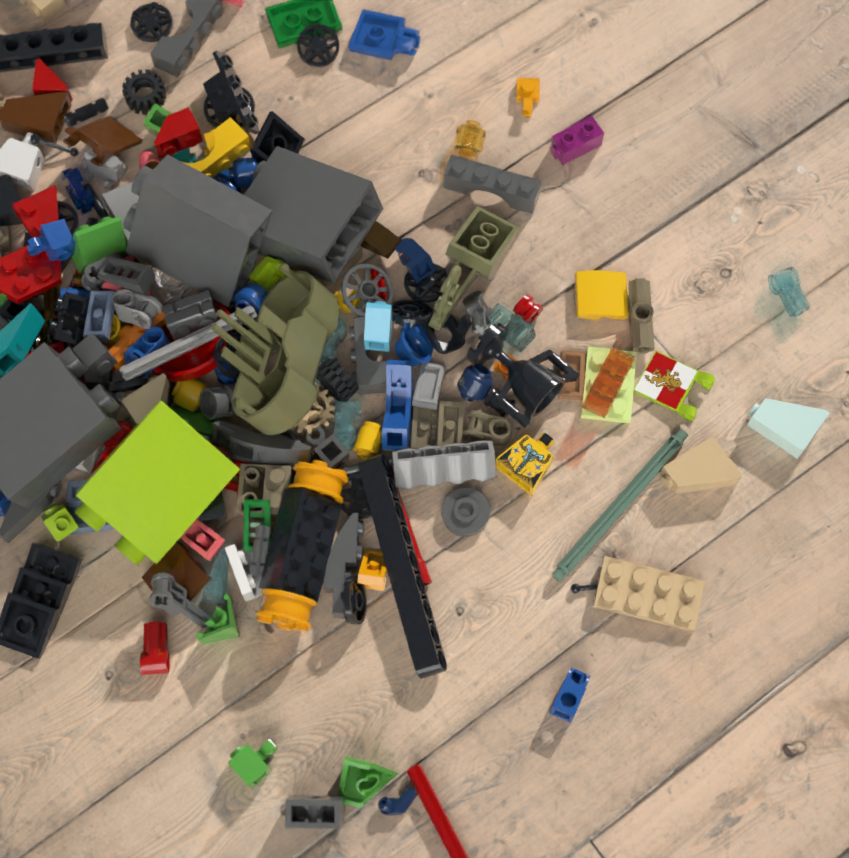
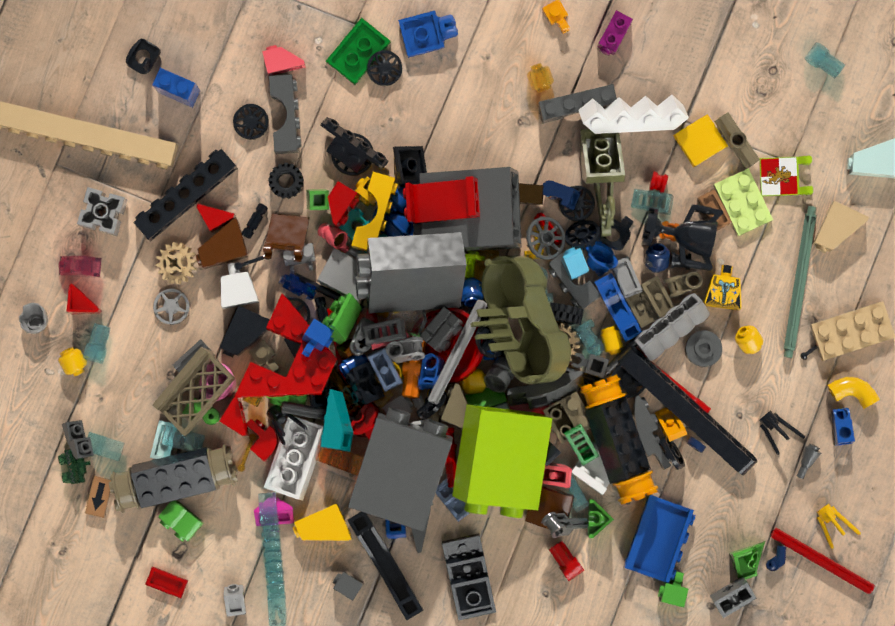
camera: 30 degrees left, 15 degrees up
(59, 521) = (447, 518): lime bracket -> none
(95, 355) = (404, 400): dark grey brick -> none
(260, 550) = (595, 459): dark grey axle -> none
(275, 690) = (659, 539): none -> blue panel
(278, 179) = (442, 200): none -> red panel
(387, 610) = (695, 444): none -> dark blue tile
(478, 312) = (630, 207): dark grey connector -> none
(490, 637) = (771, 421): none -> black plant
(490, 787) = (828, 514): none -> yellow plant
(510, 705) = (810, 455): none -> dark grey cone
(522, 529) = (749, 339): none -> yellow head
(552, 231) = (640, 117): none -> white brick
(608, 382) = (745, 204): clear orange beam -> none
(612, 657) = (853, 387): none -> yellow cylinder

